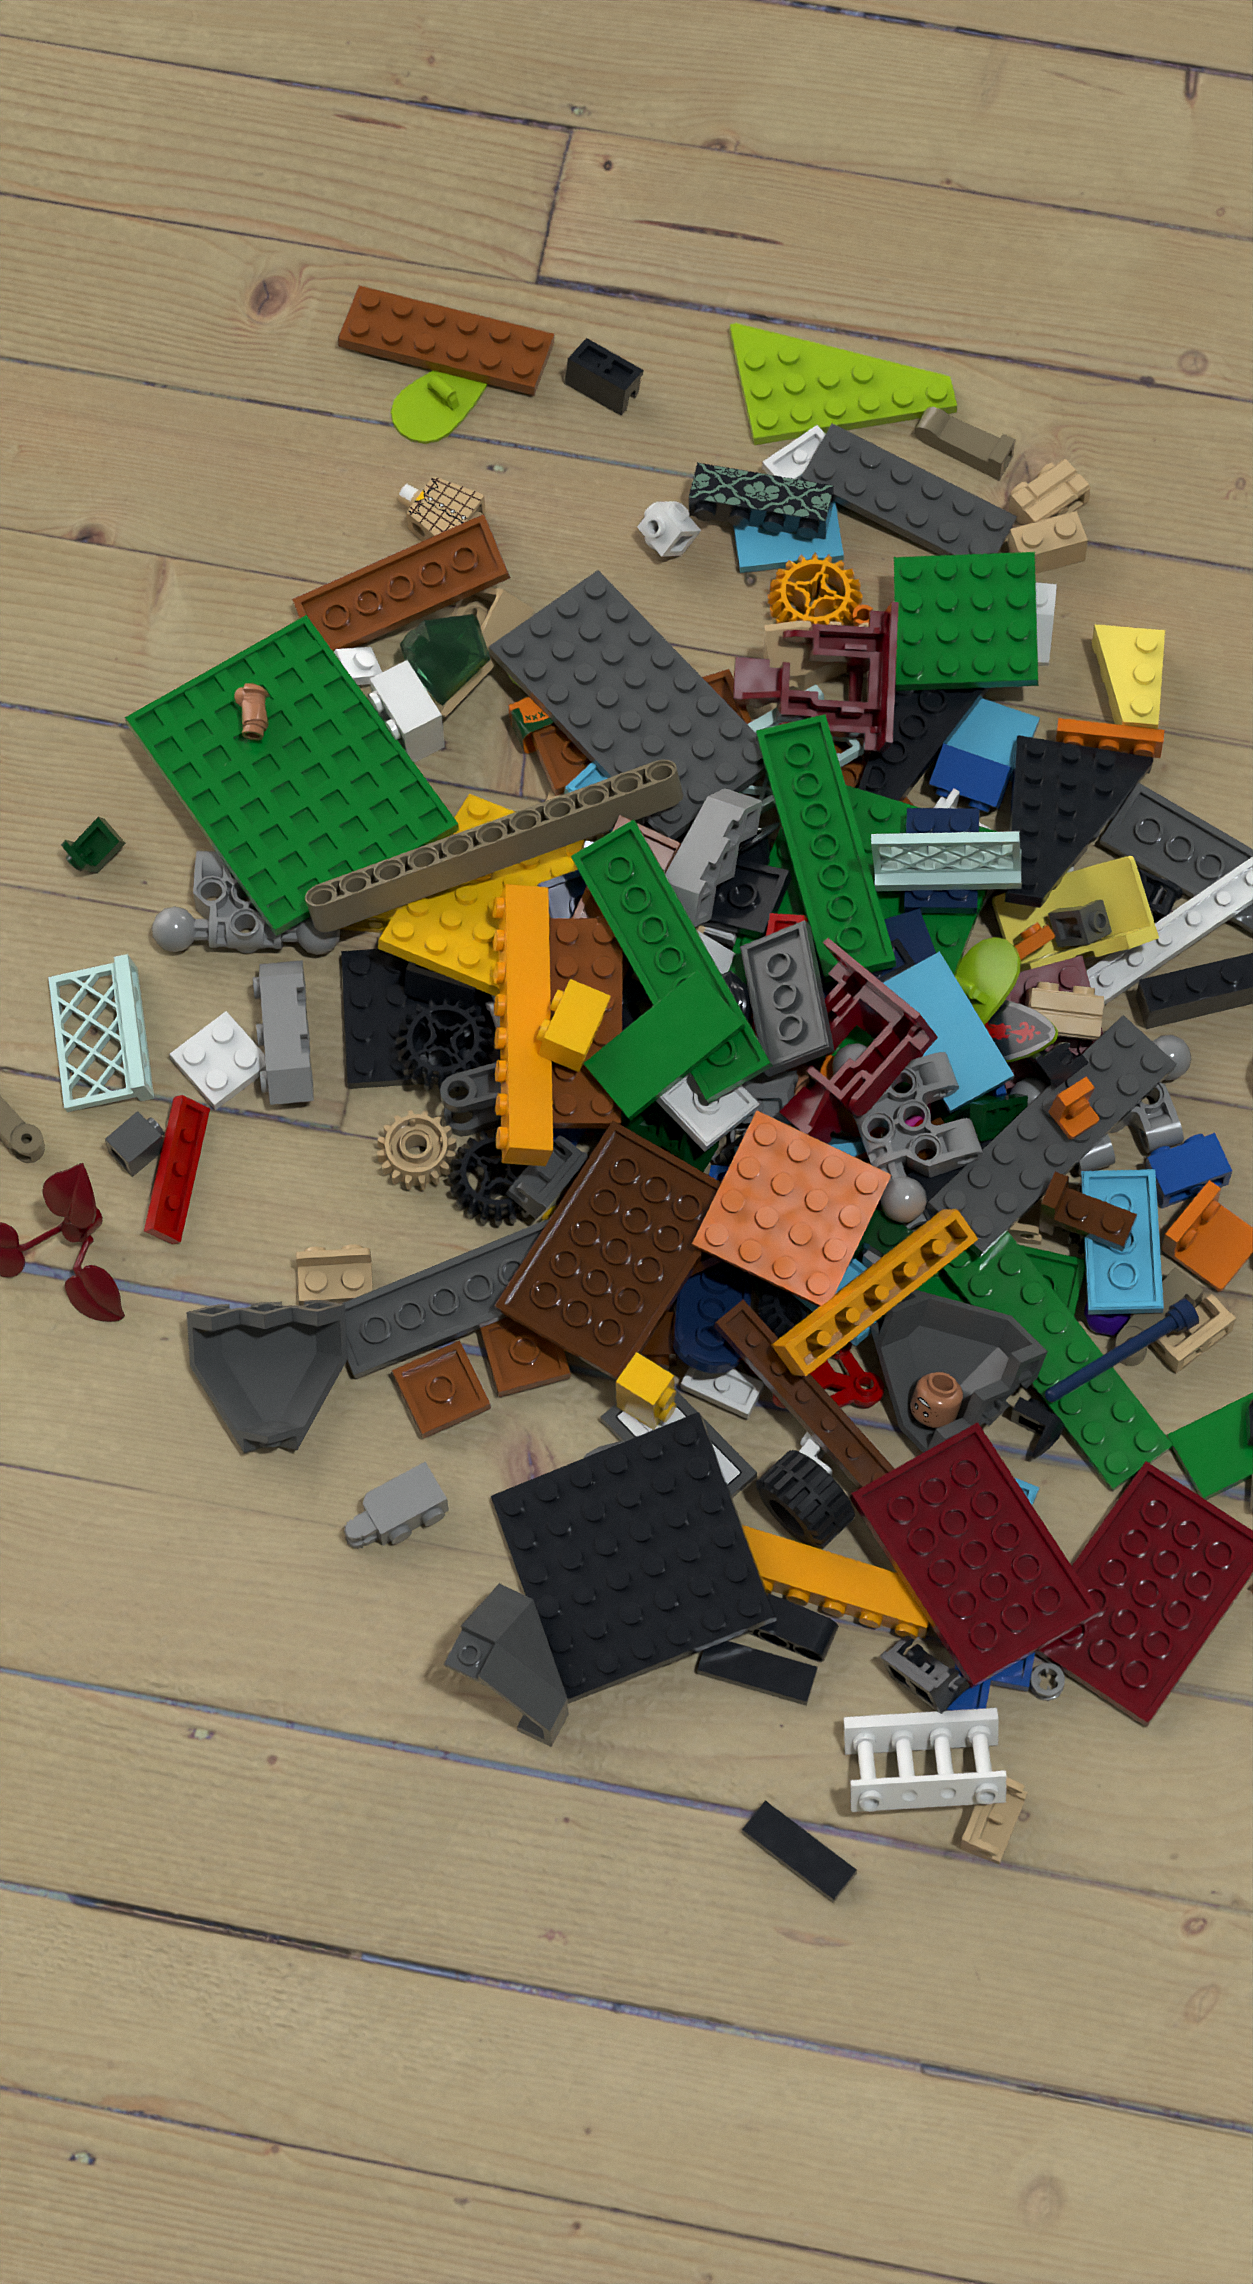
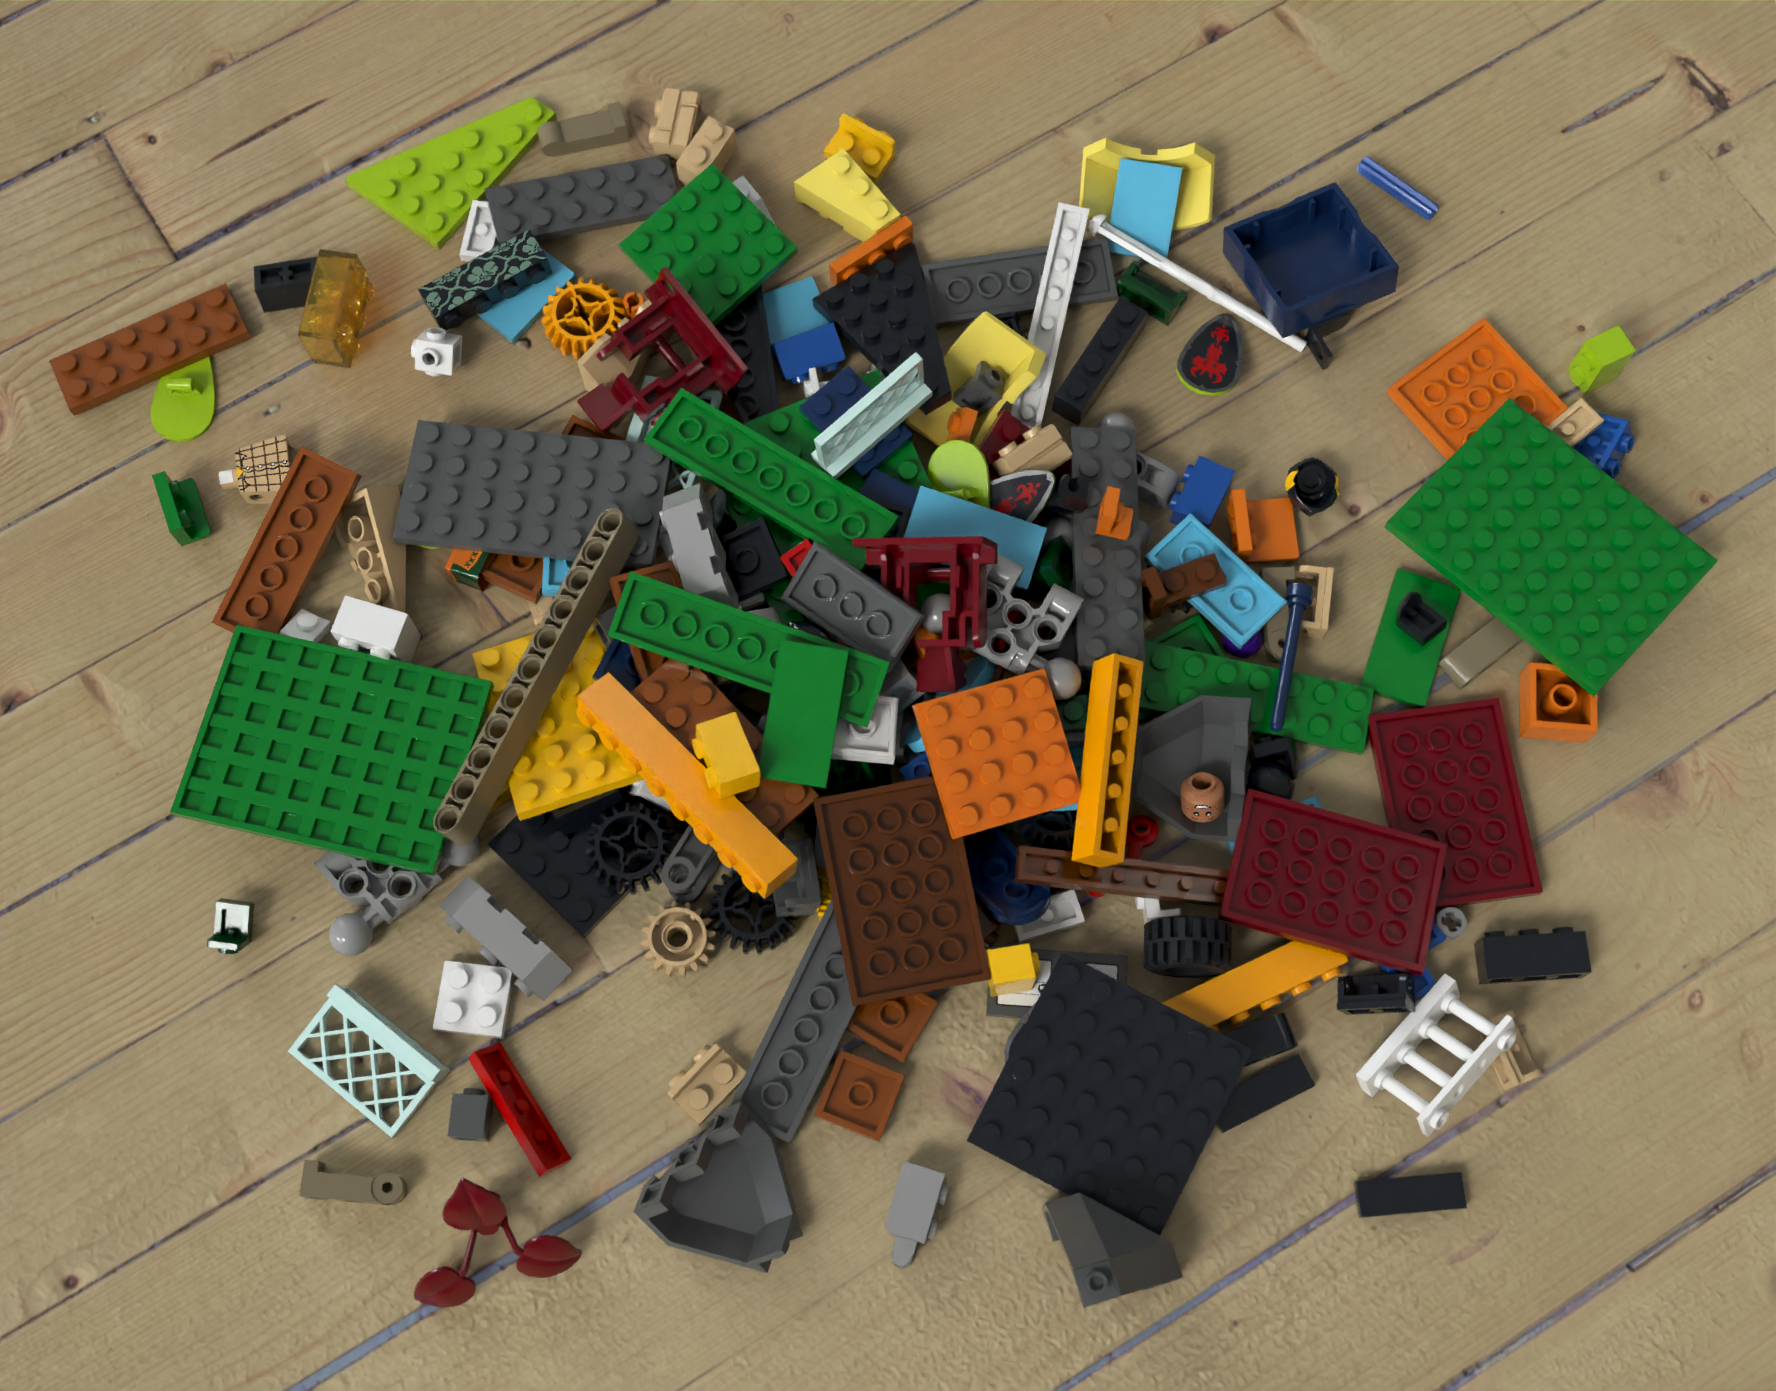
camera: 45 degrees left, 5 degrees up
(254, 714) = (267, 728): nougat arm -> none
(351, 489) = (182, 508): none -> green bracket
(446, 653) = (366, 567): clear green slope -> none
(618, 425) = (335, 309): none -> clear yellow brick
(1012, 1441) = (1271, 778): none -> black hair
(1087, 1764) = (1532, 956): none -> black brick
(1188, 646) = (868, 147): none -> yellow bracket

